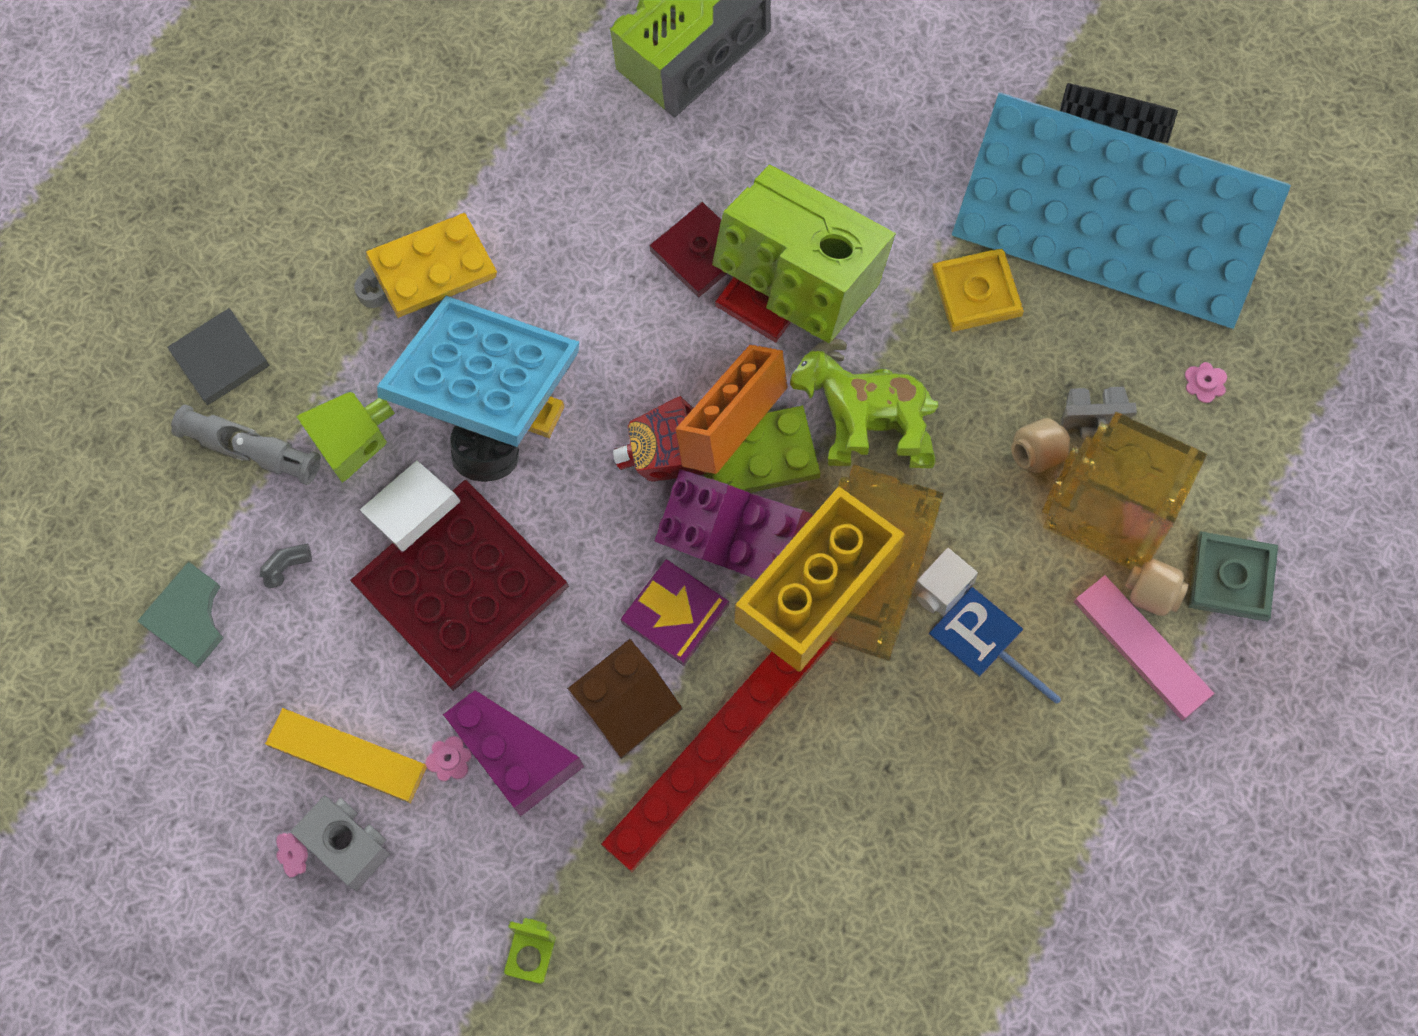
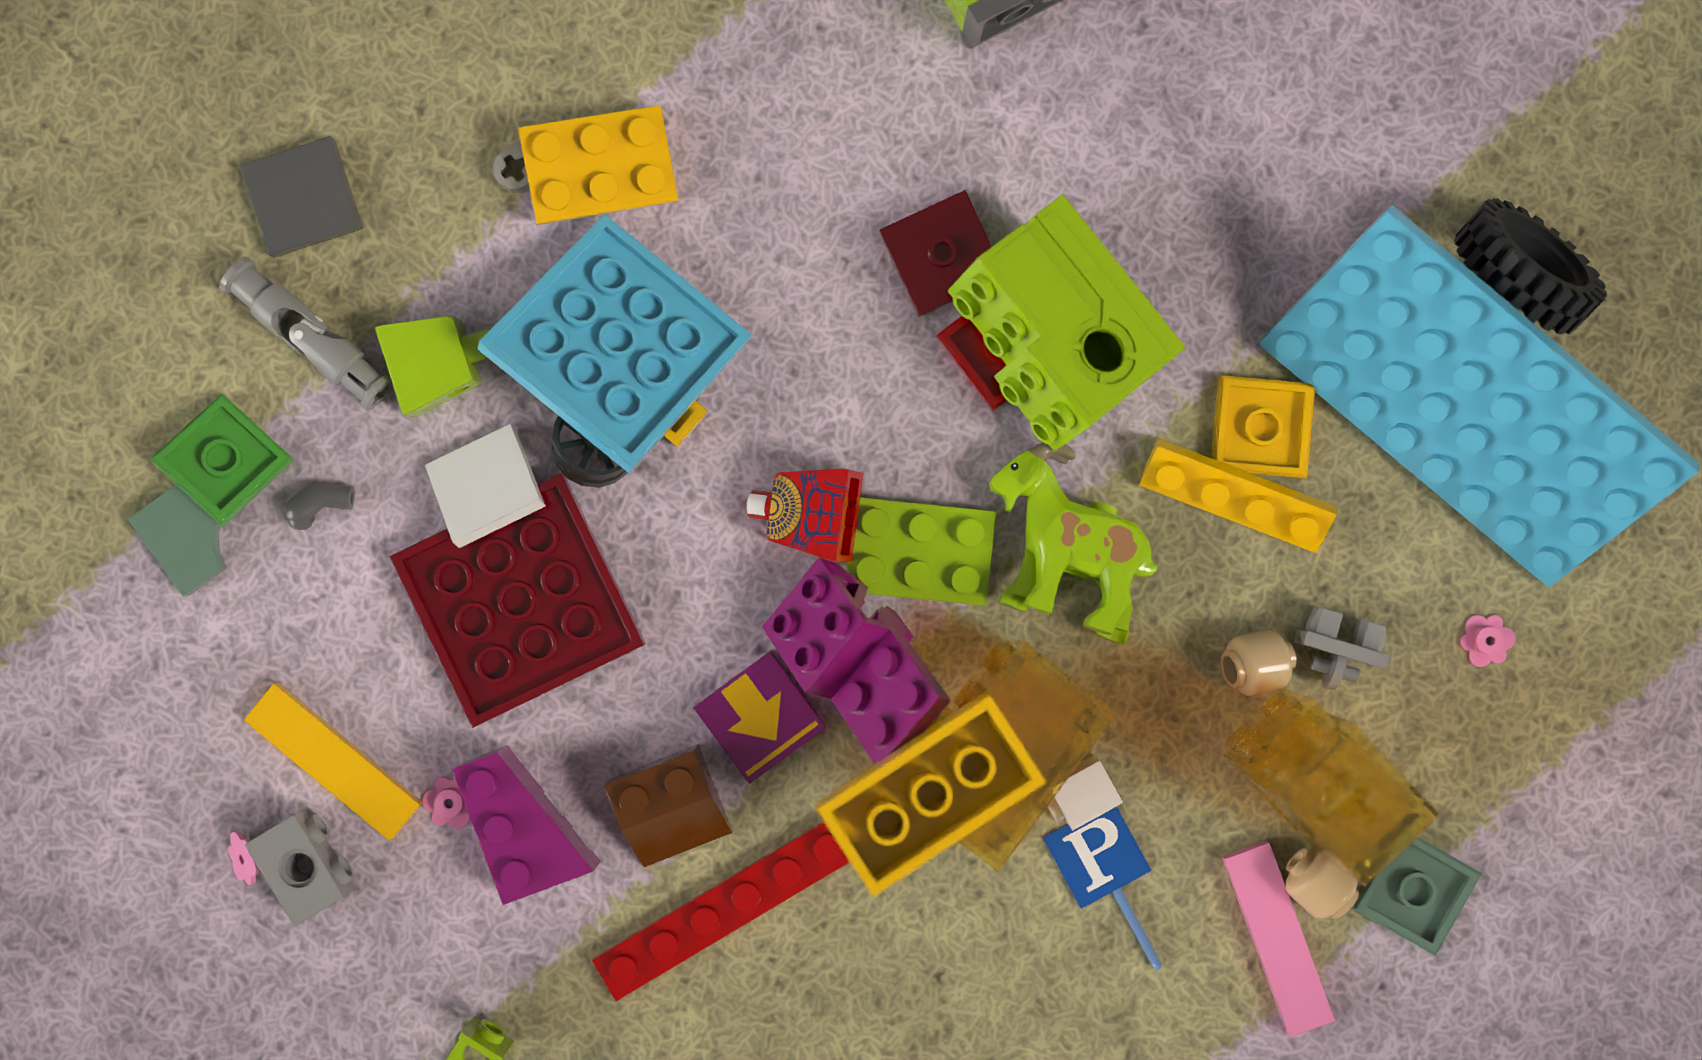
camera: 20 degrees right, 20 degrees up
(201, 553) = (222, 460): none -> bright green tile
(731, 409) = (905, 508): orange brick -> none
(978, 338) = (1237, 495): none -> yellow plate

